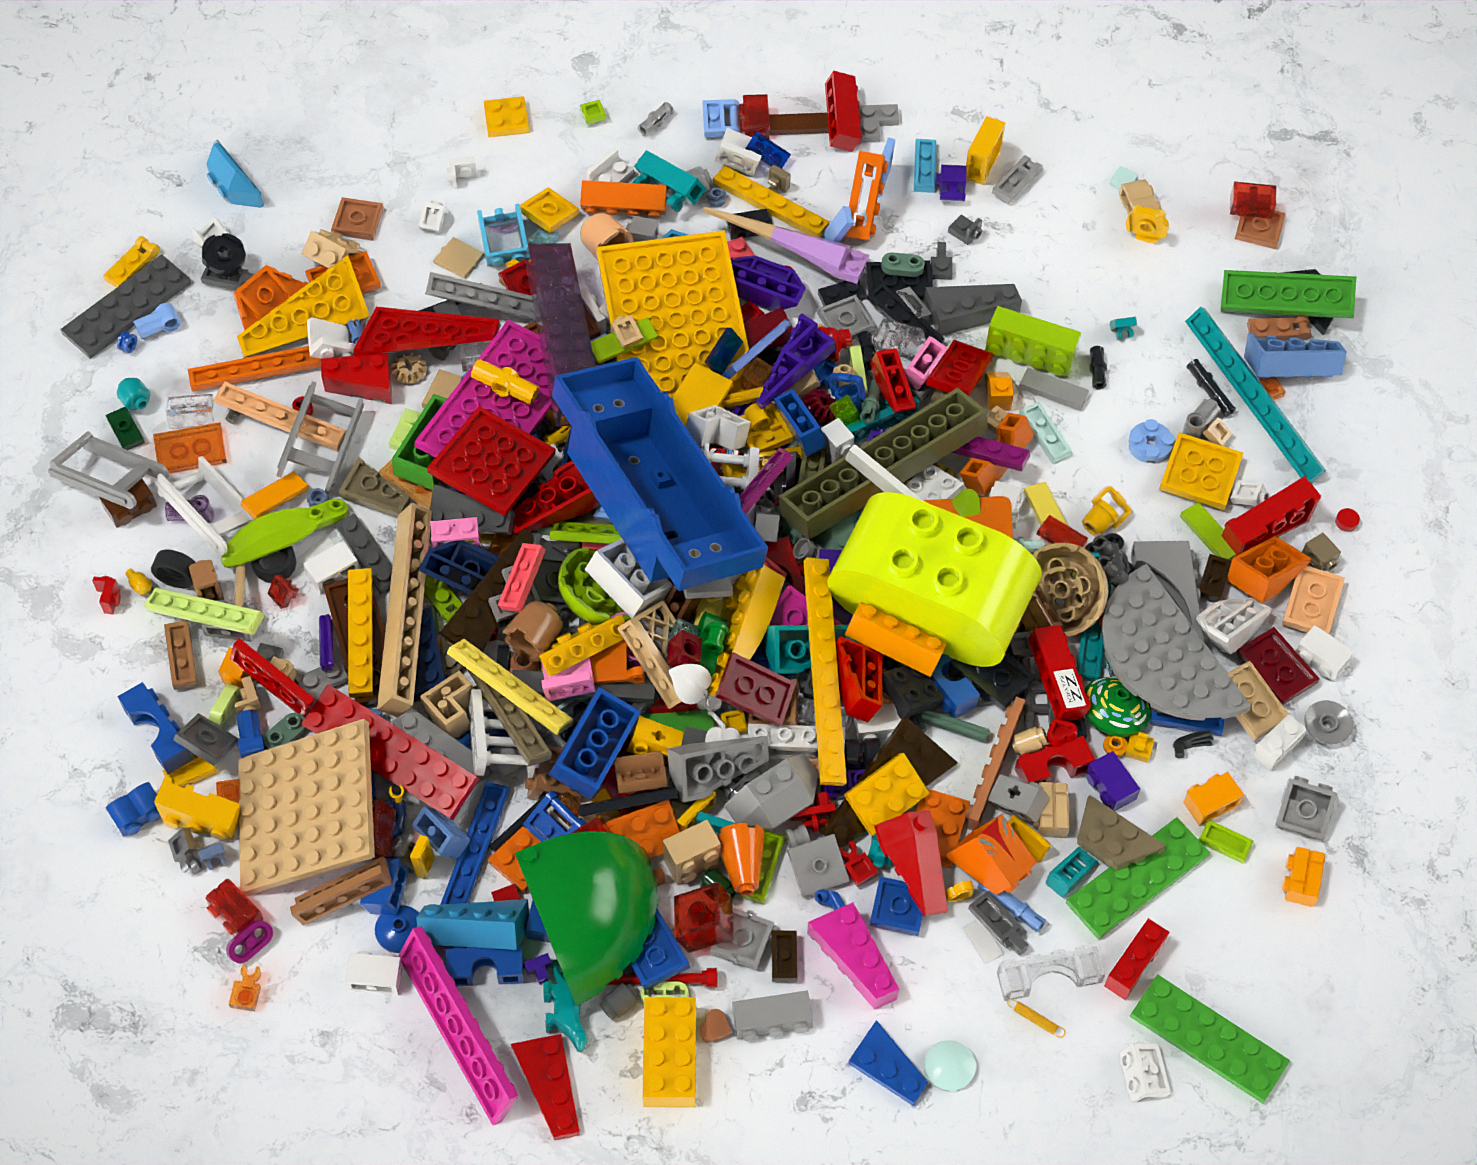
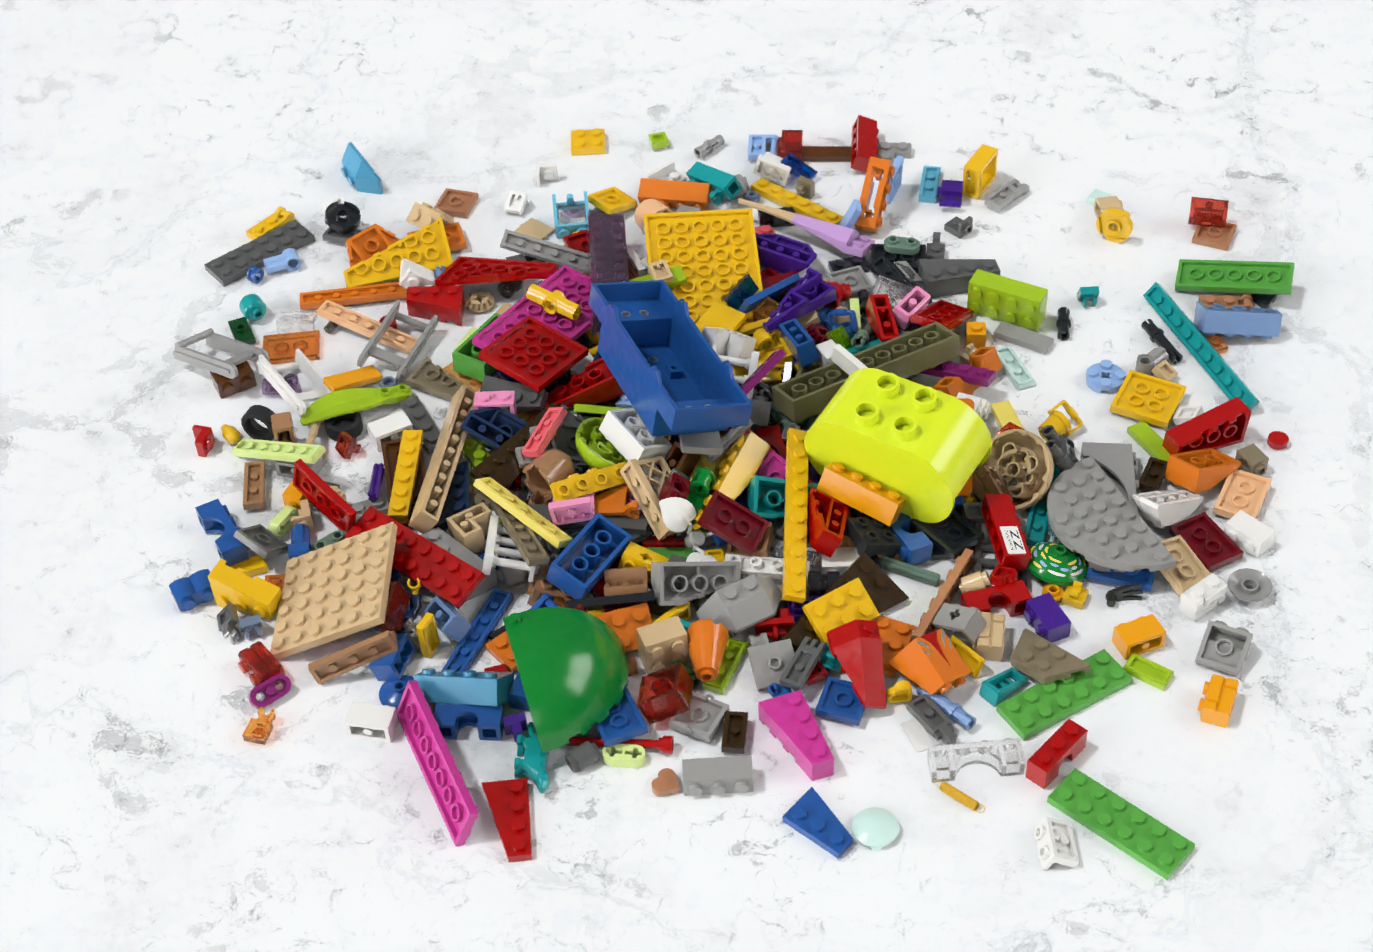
camera: 10 degrees right, 15 degrees down
(669, 1052) = (621, 797): yellow brick -> none
(850, 866) = (802, 664): none -> dark grey hinge

